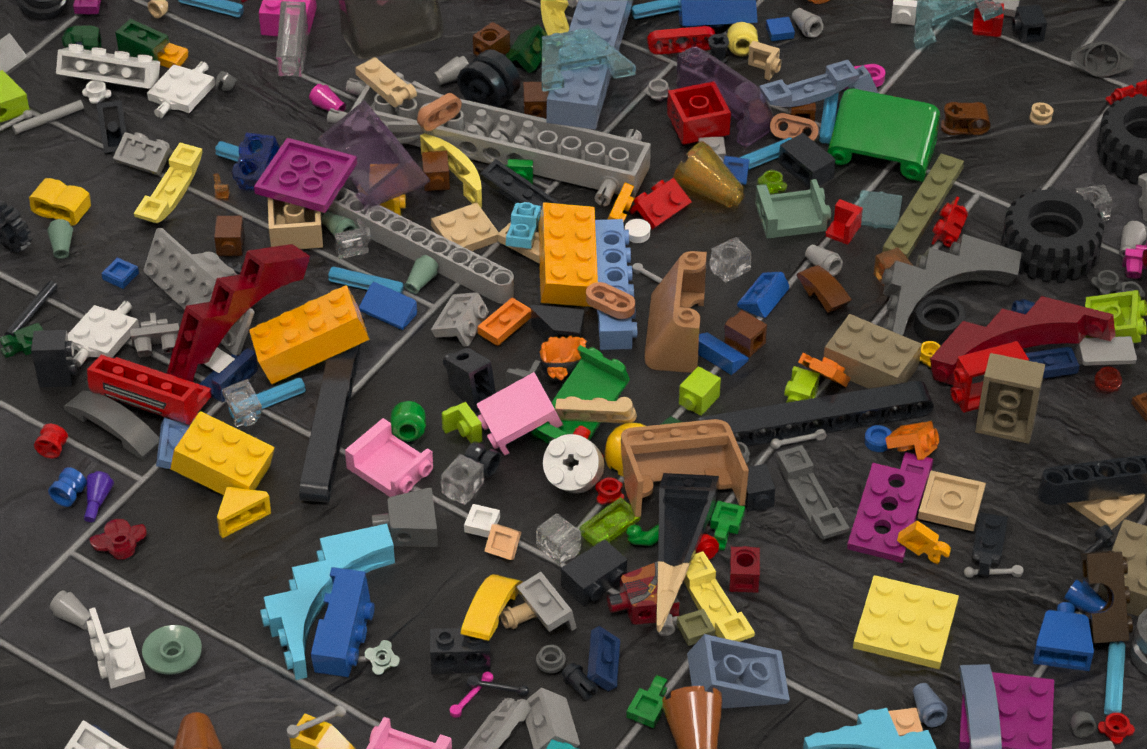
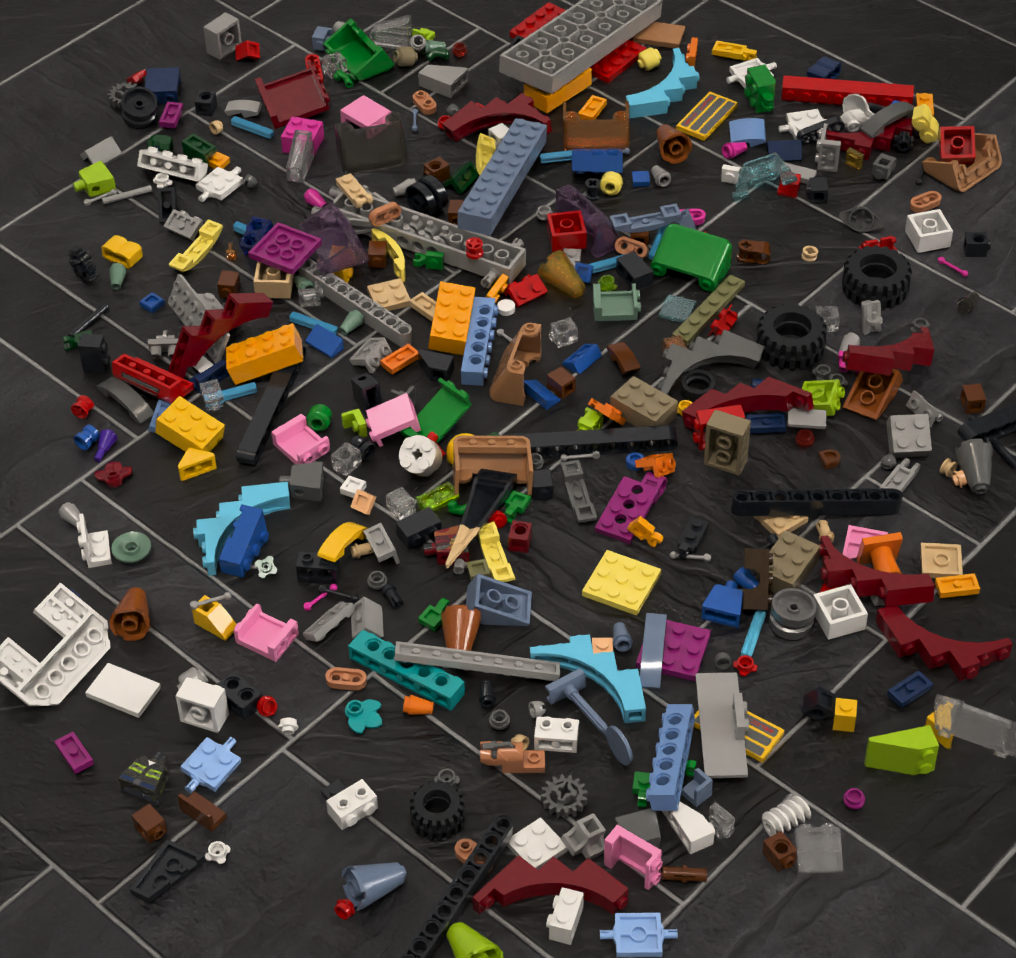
camera: 10 degrees right, 0 degrees up
(102, 332) = (130, 340): white plate -> none
(513, 185) = (427, 269): black tile -> none
(523, 225) = (427, 296): medium azure slope -> none
(560, 357) = (428, 385): orange hair -> none
(579, 50) = (485, 180): clear light blue wing -> none
(579, 149) = (474, 248): none -> red wheel
(596, 410) = (444, 422): tan plate -> none
(603, 658) = (411, 583): dark blue plate -> none
(609, 490) = (442, 476): red plate -> none
(610, 300) = (471, 351): nougat plate -> none
(665, 47) = (556, 176): red beam -> none
(699, 390) = (520, 417): lime brick -> none
(764, 57) = (623, 197): tan bracket -> none
(826, 259) = (629, 338): light grey cone -> none
(846, 222) = (651, 315): red panel -> none
(951, 500) = (673, 507): tan plate -> none

